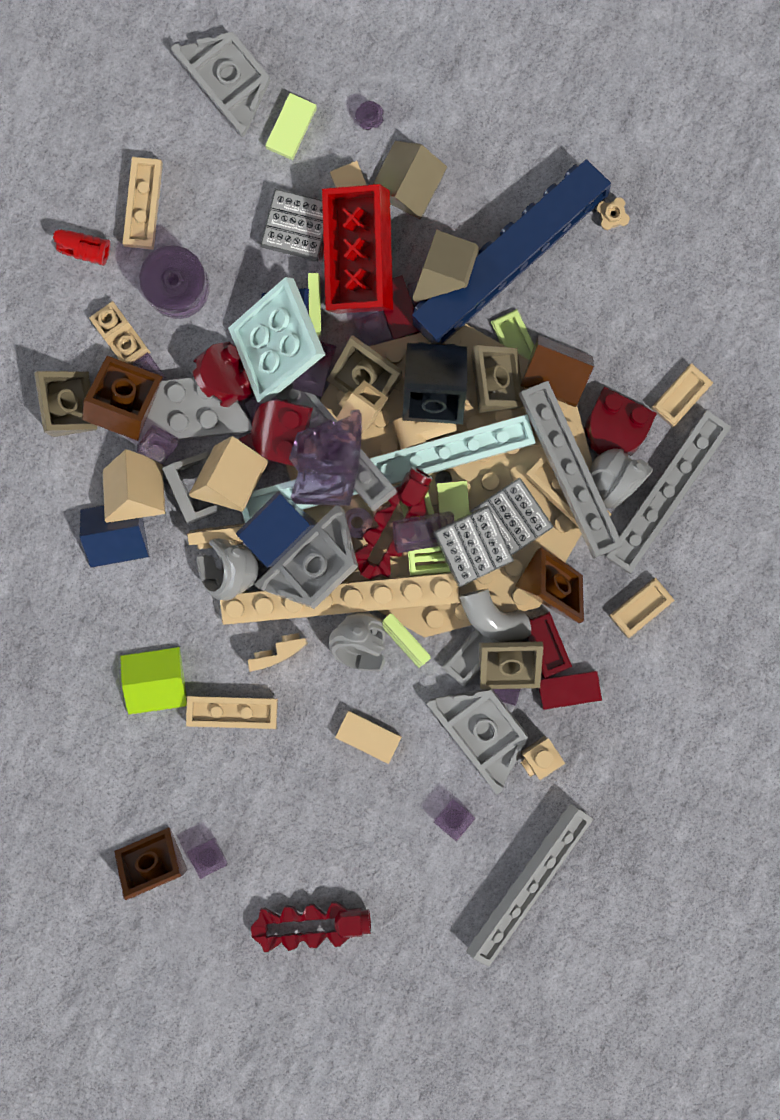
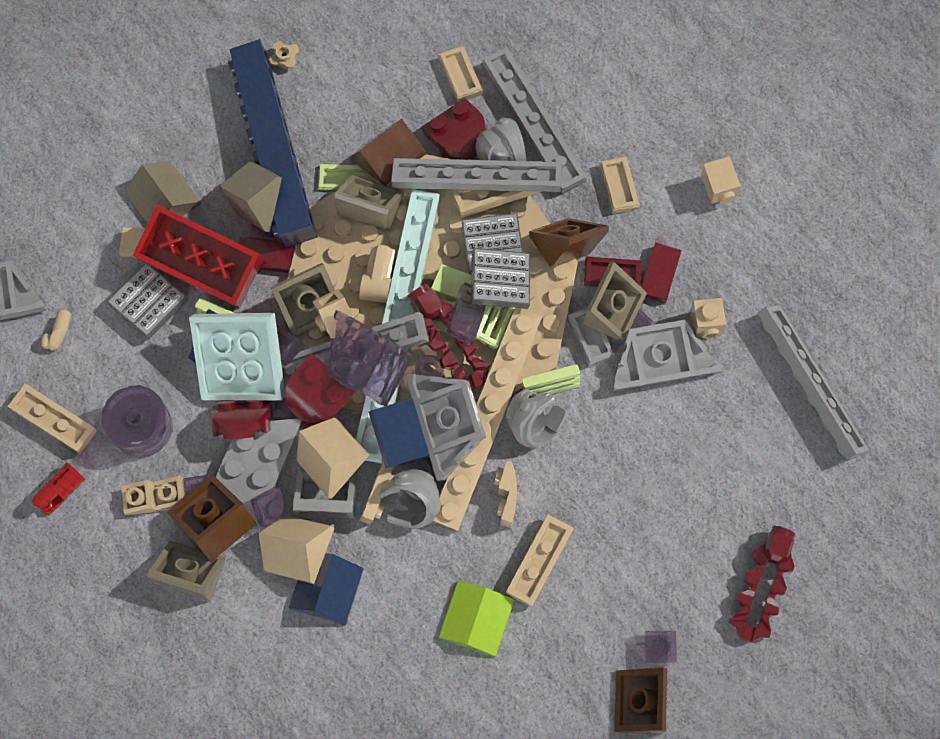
camera: 65 degrees left, 15 degrees down
(227, 161) = (59, 331): none -> tan arm
(291, 126) = (62, 266): yellowish green tile -> none
(366, 108) = (91, 193): clear purple plate -> none
(368, 737) = (619, 455): tan tile -> none
(373, 329) = (267, 278): clear purple plate -> none
(435, 383) = (348, 243): black slope -> none
(454, 819) = (726, 416): clear purple plate -> none
(493, 622) = (570, 300): light grey cylinder -> none
(691, 705) = (720, 180): none -> tan brick

